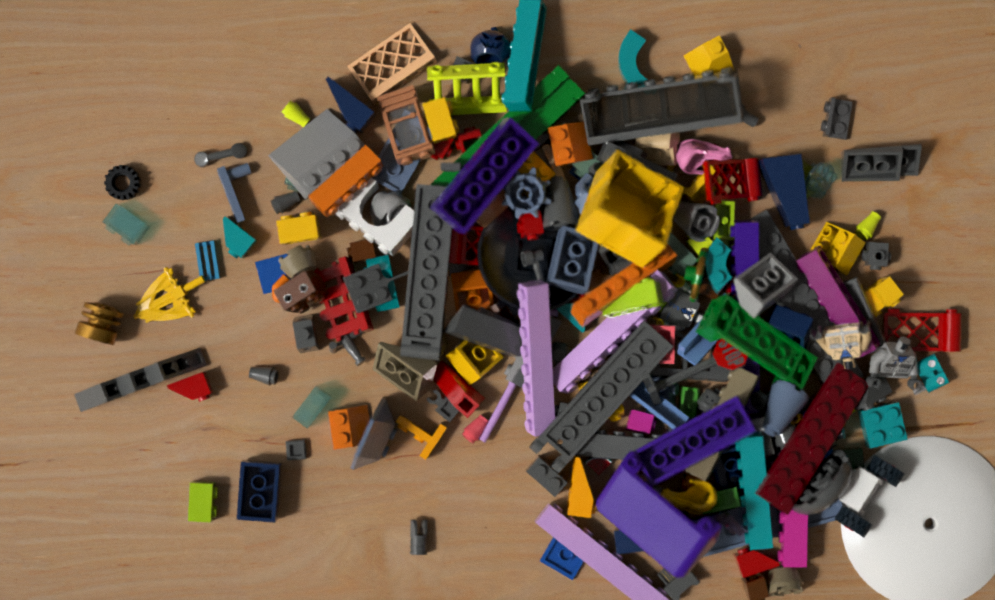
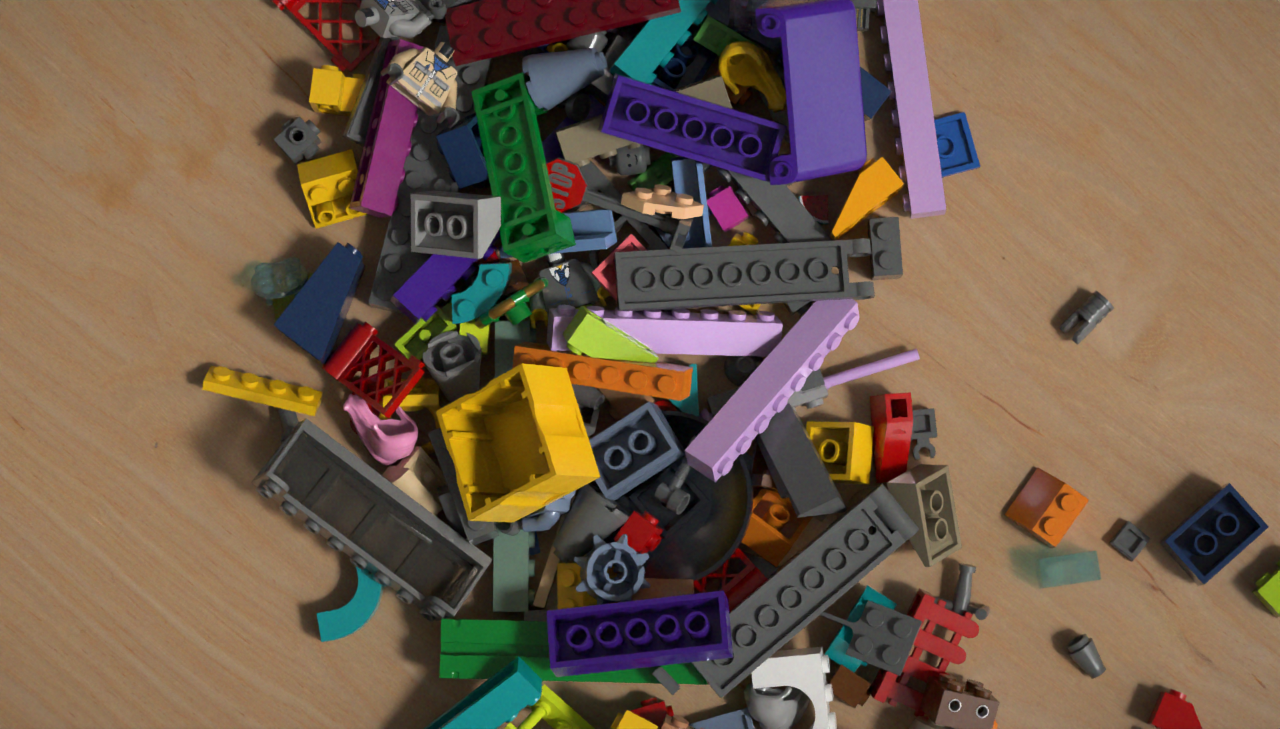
camera: 140 degrees left, 5 degrees down
(305, 334) = (998, 657): dark grey torso -> none
(376, 436) = (1028, 468): wedge -> none
(421, 435) = (977, 424): light orange bracket -> none
(468, 134) = (608, 700): red bracket -> none
(475, 429) = (913, 373): coral cone -> none
(569, 144) = (511, 580): orange slope -> none
(675, 393) = (663, 201): none -> light nougat plate
(709, 56) = (267, 526): yellow slope -> none
(775, 120) = (262, 390): none -> yellow plate
(836, 119) = (195, 327): flat silver bracket -> none
(867, 227) = (276, 180): neon yellow cone -> none
(880, 163) = (196, 233): dark grey slope -> none

